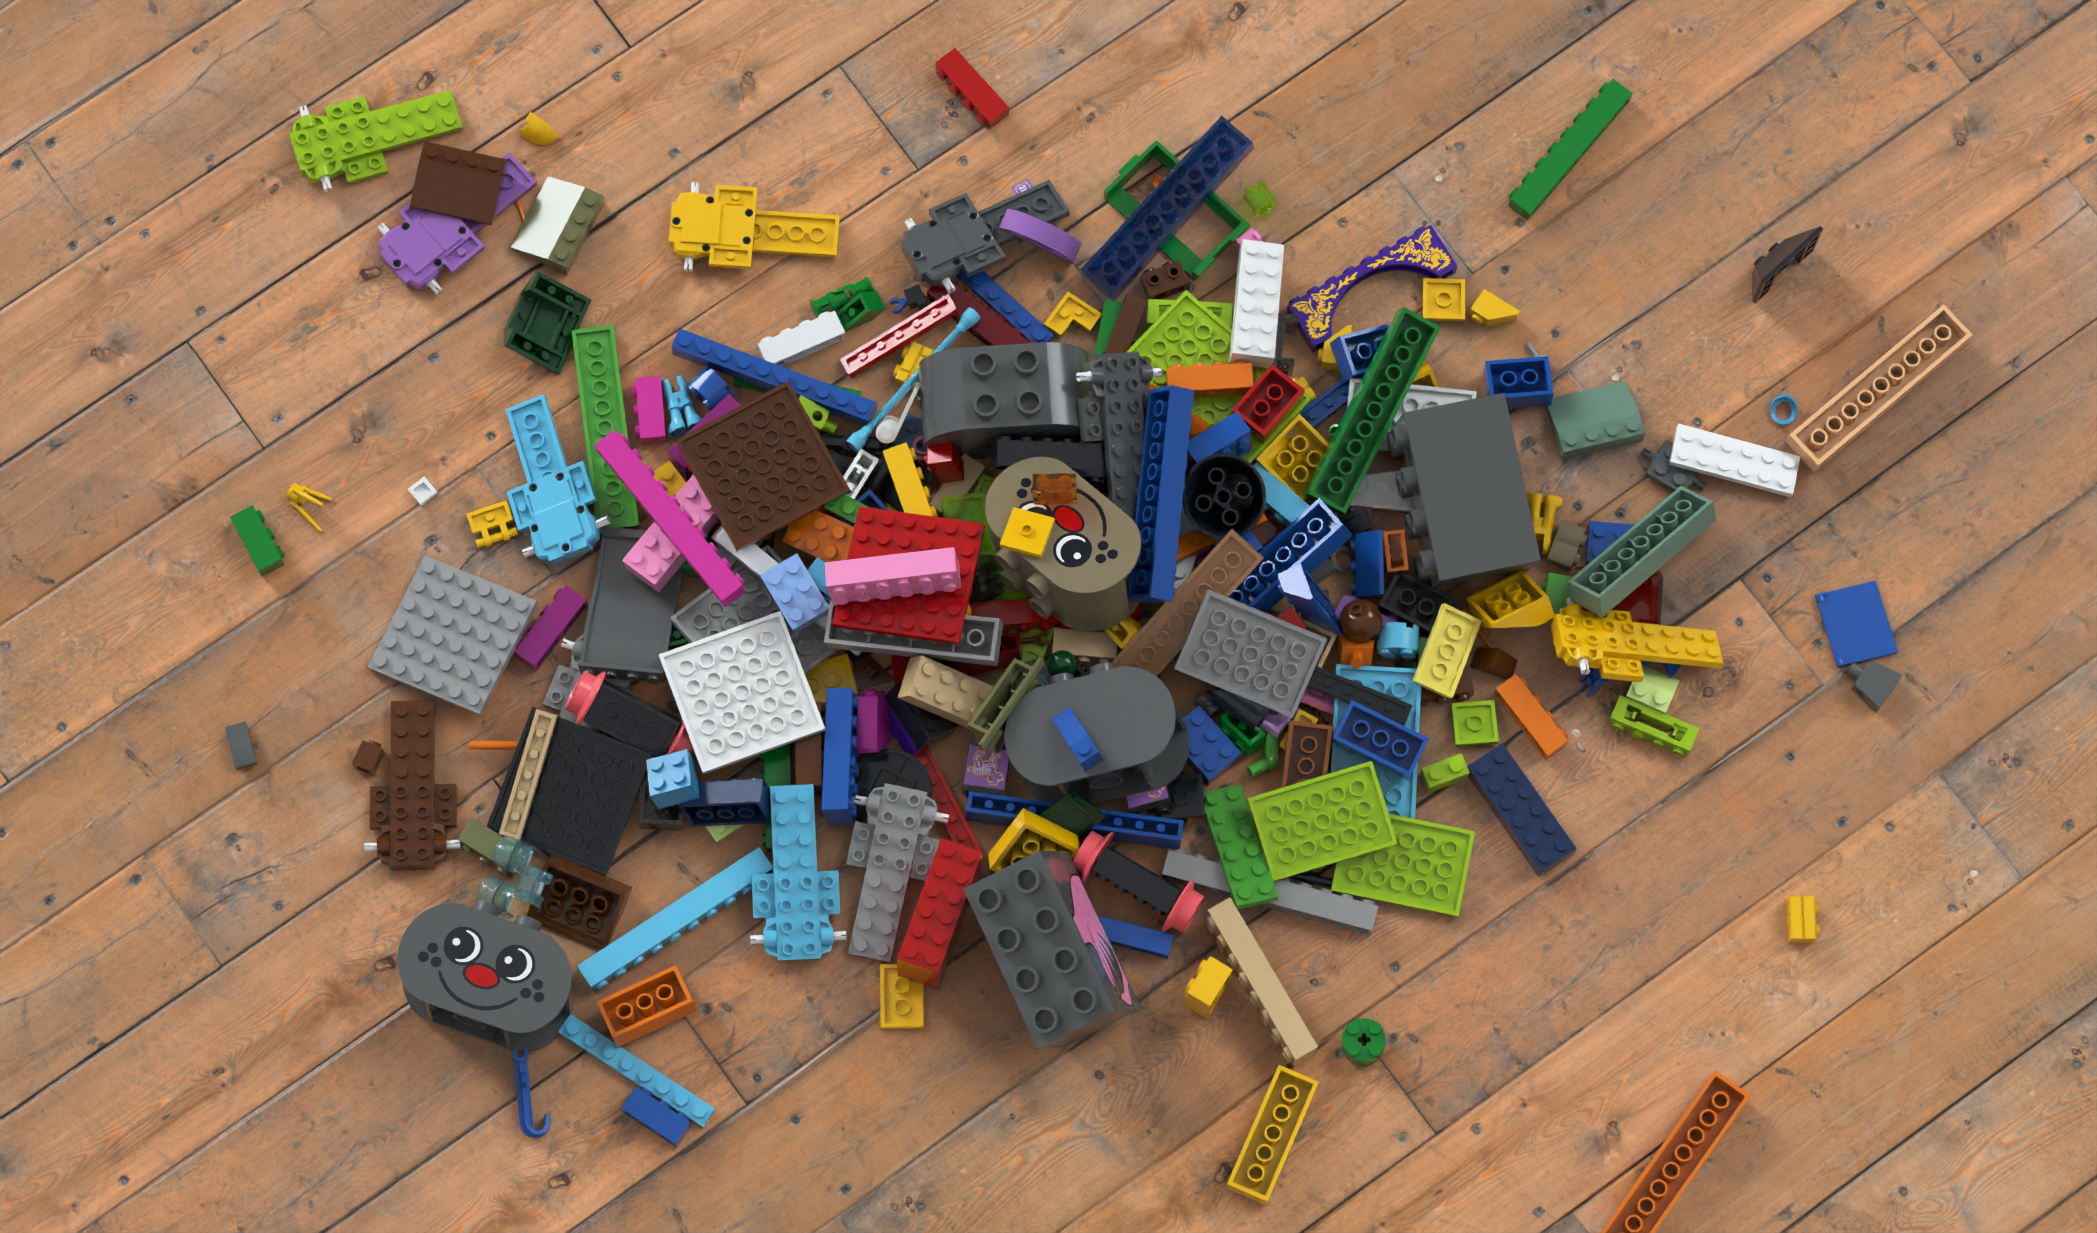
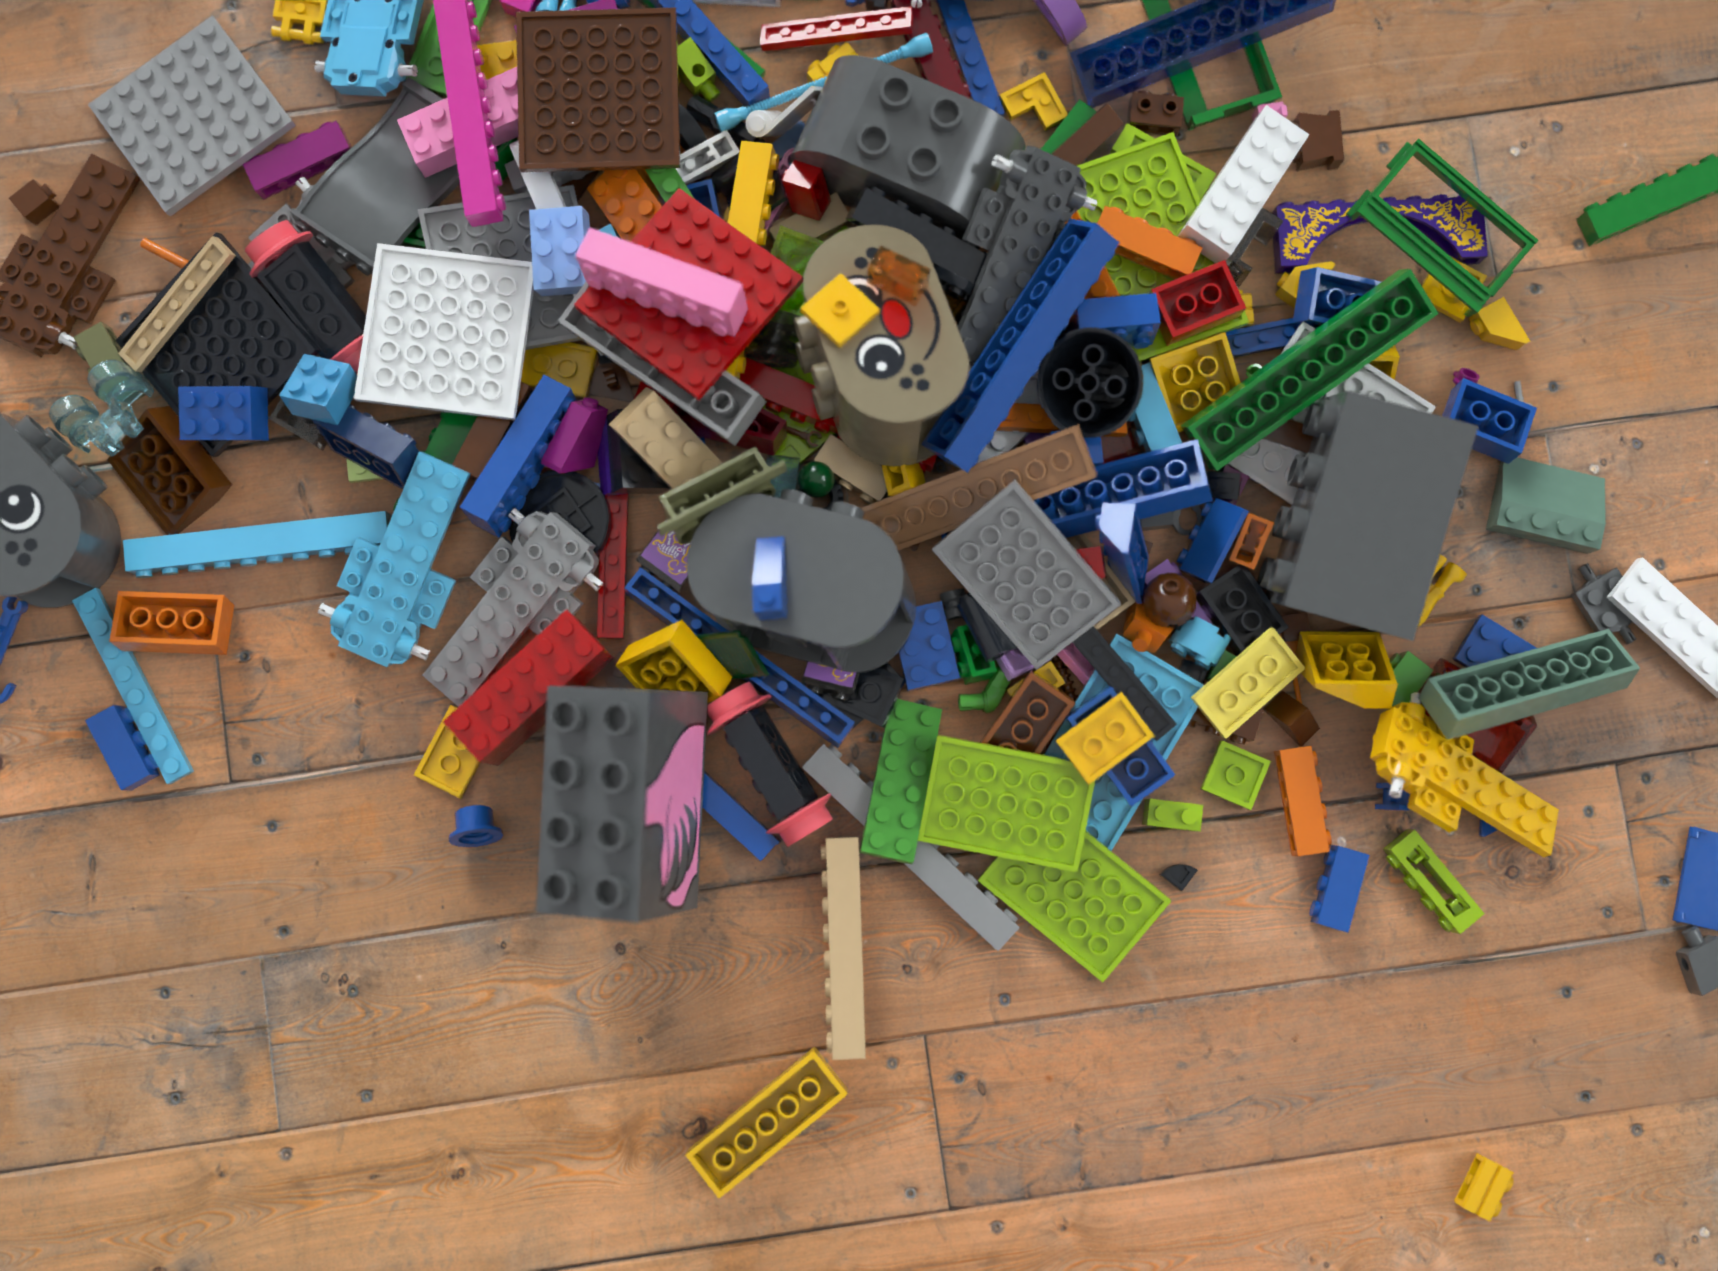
camera: 30 degrees right, 10 degrees up
(605, 835) = (223, 413): none -> blue brick
(949, 1038) = (475, 827): none -> blue piece
(1208, 987) = (781, 924): yellow brick -> none
(1260, 198) = (1307, 74): clear neon green brick -> none
(1296, 242) = (1324, 141): none -> reddish brown hips
(1312, 878) = (969, 858): black bar -> none
(1366, 737) = (1104, 738): none -> yellow tile
(1375, 1039) = (929, 1083): green brick -> none
(1407, 285) = (1425, 251): none -> green piece
(1472, 815) = (1179, 875): none -> black tile
(1488, 356) = (1467, 374): none -> magenta plate
(1520, 810) = (1235, 901): dark blue brick -> none
(1565, 545) = (1443, 628): dark tan brick -> none
(1589, 764) = (1339, 888): none -> blue brick
(1654, 690) = (1455, 849): yellowish green slope -> none

